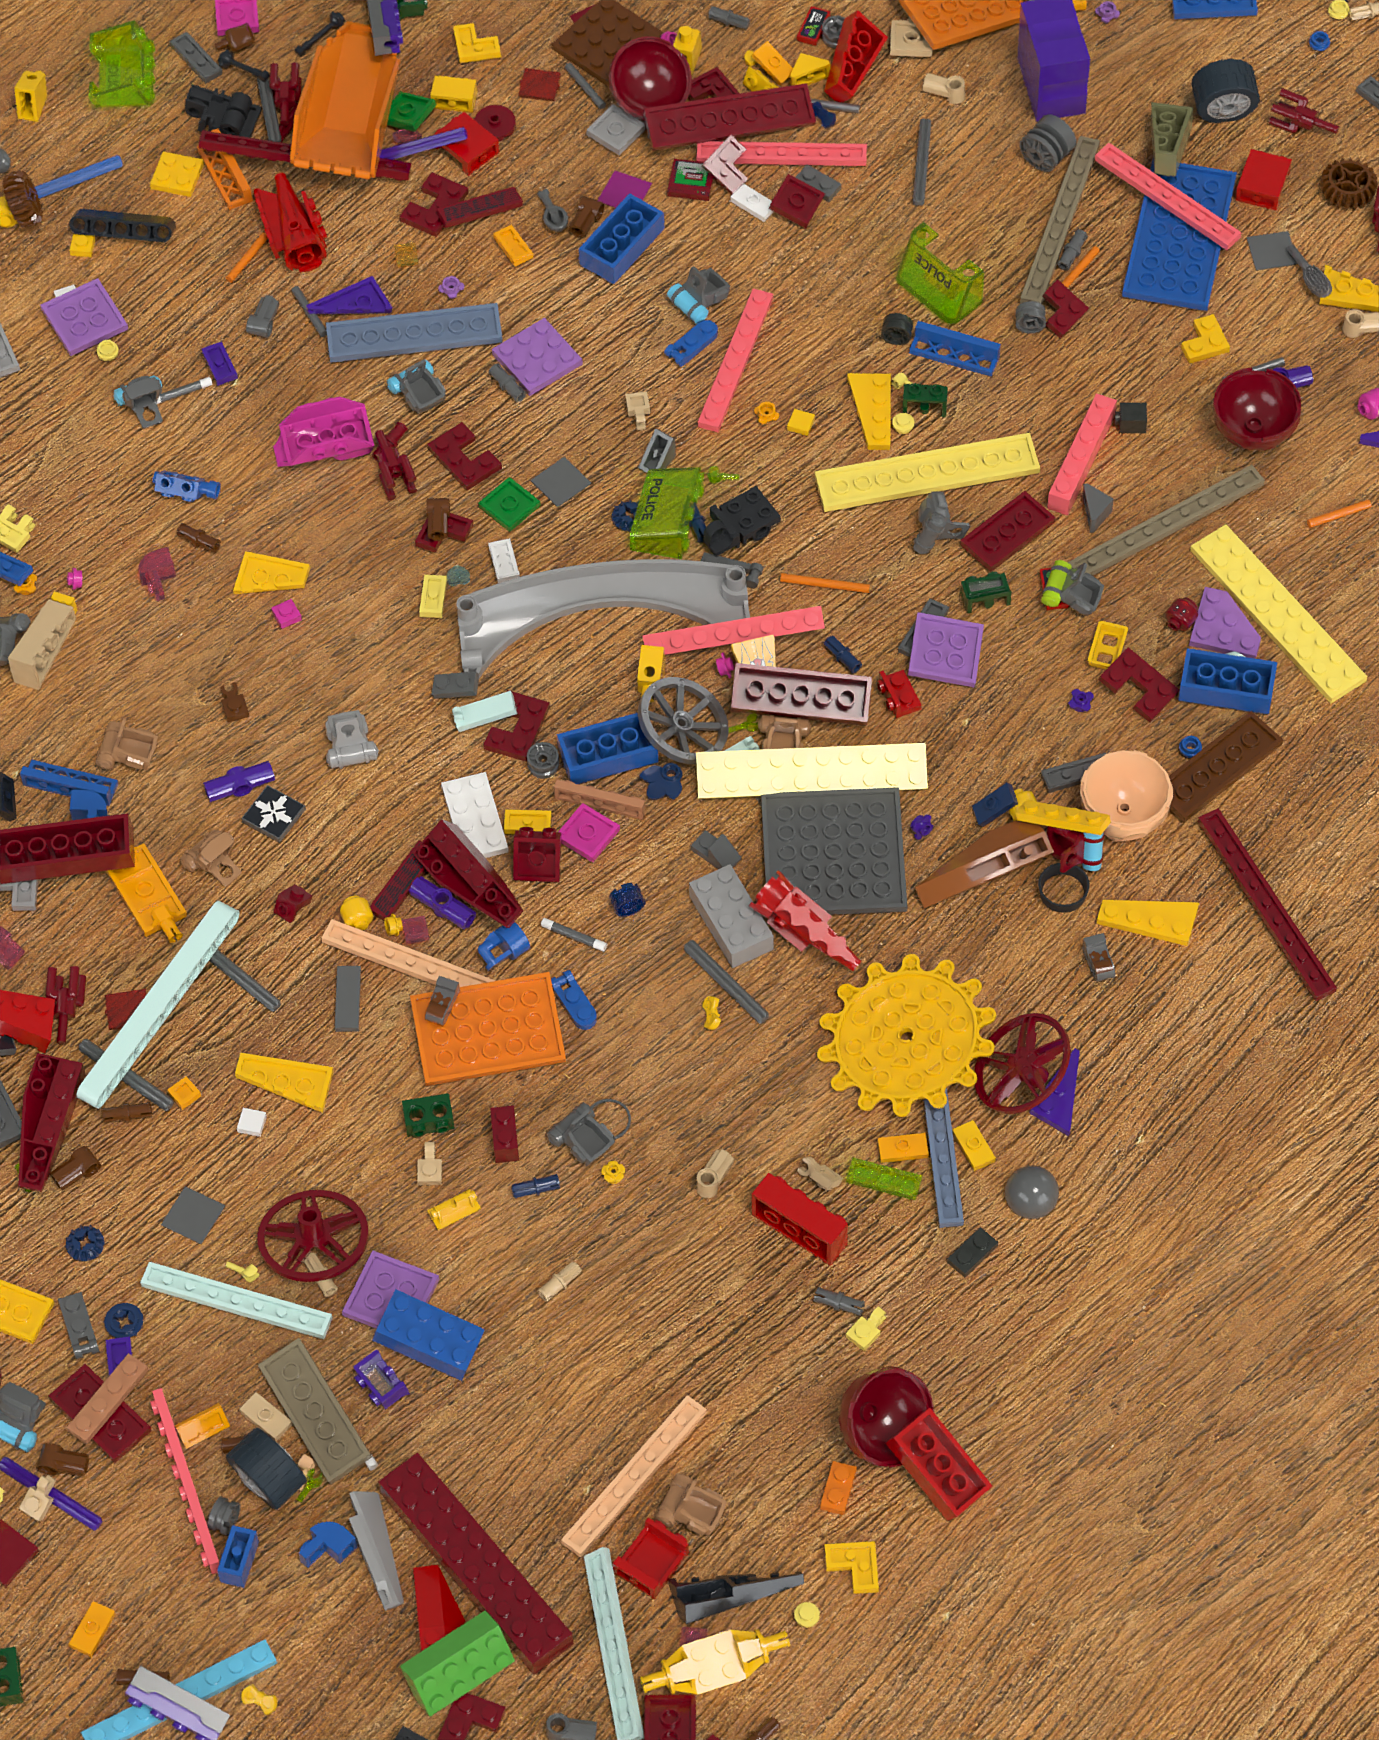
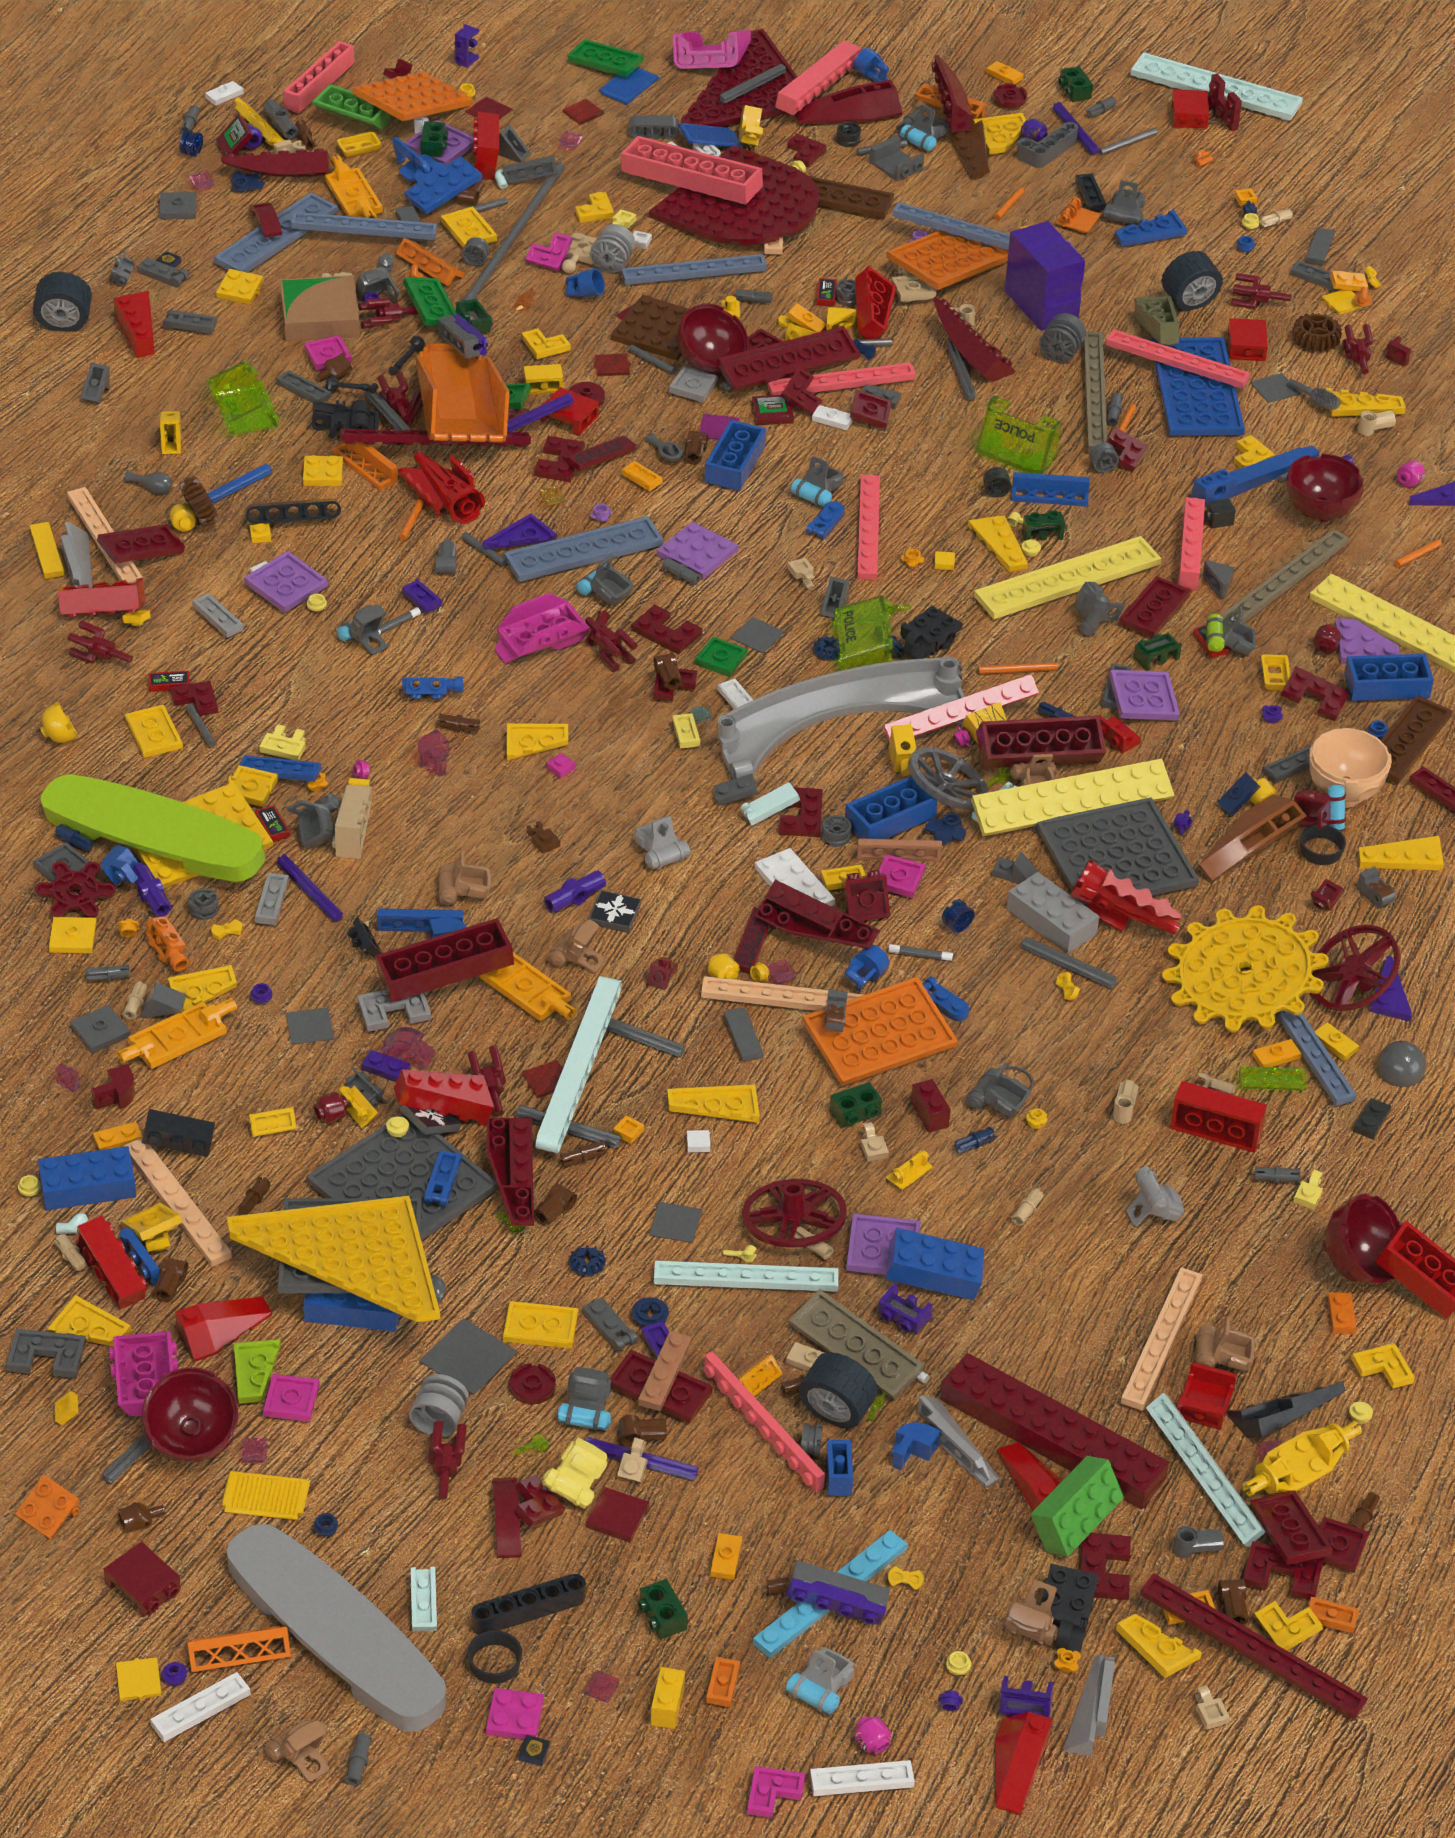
camera: 20 degrees left, 15 degrees down
(452, 910) = (796, 947): dark purple piece -> none
(692, 1307) = (1155, 1198): none -> light grey piece
(944, 134) = (971, 345): none -> dark red wedge
(1040, 955) = (1326, 895): none -> dark red bracket
(1063, 817) = (1300, 786): yellow plate -> none
(1154, 380) = (1227, 485): none -> blue piece

